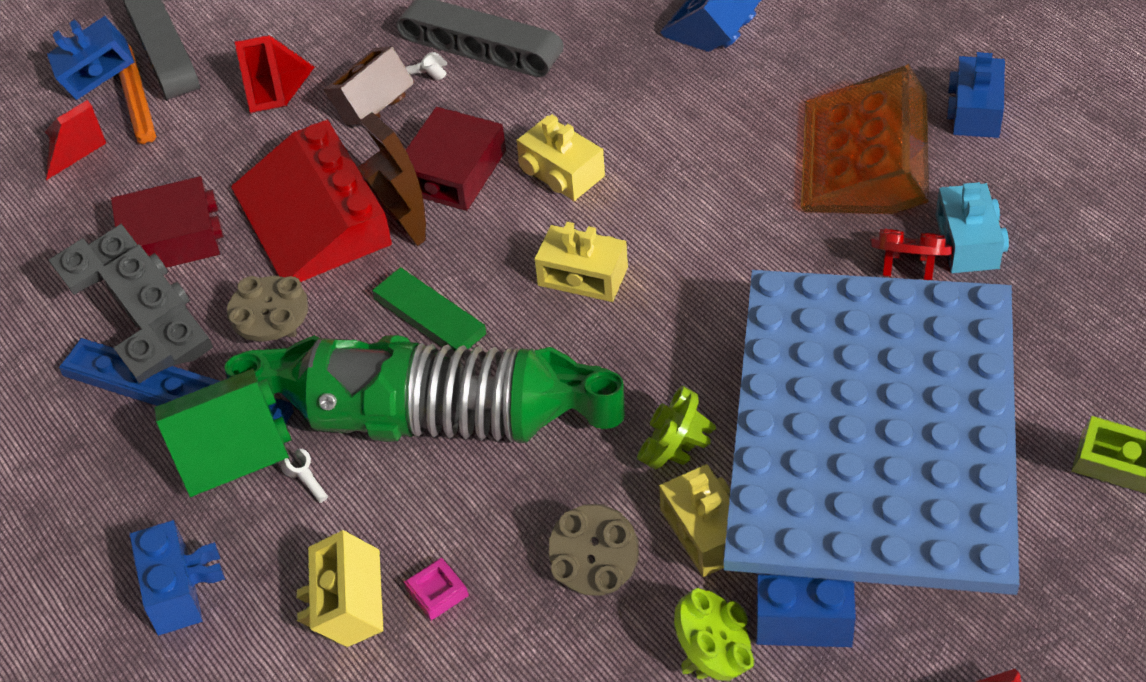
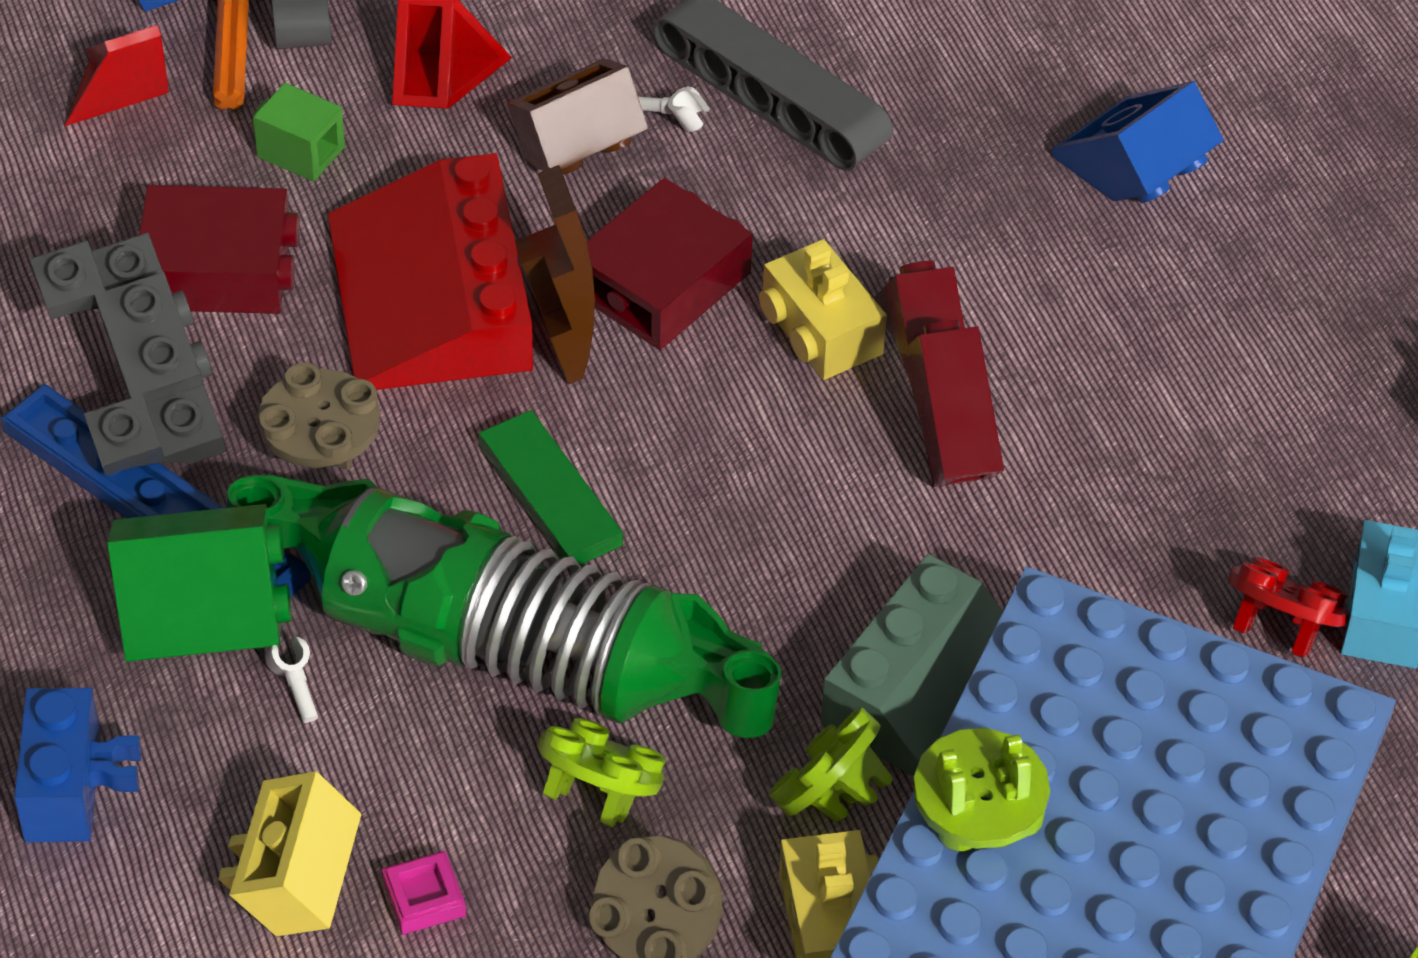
camera: 10 degrees right, 0 degrees up
(197, 142) = (298, 131): none -> bright green brick
(512, 468) = (590, 756): none -> lime plate
(581, 262) = (795, 479): light yellow brick -> none
(652, 172) = (944, 373): none -> dark red arch
(703, 352) = (914, 661): none -> sand green slope
(767, 424) = (952, 797): none -> lime plate
(867, 147) = (1290, 423): clear orange slope -> none

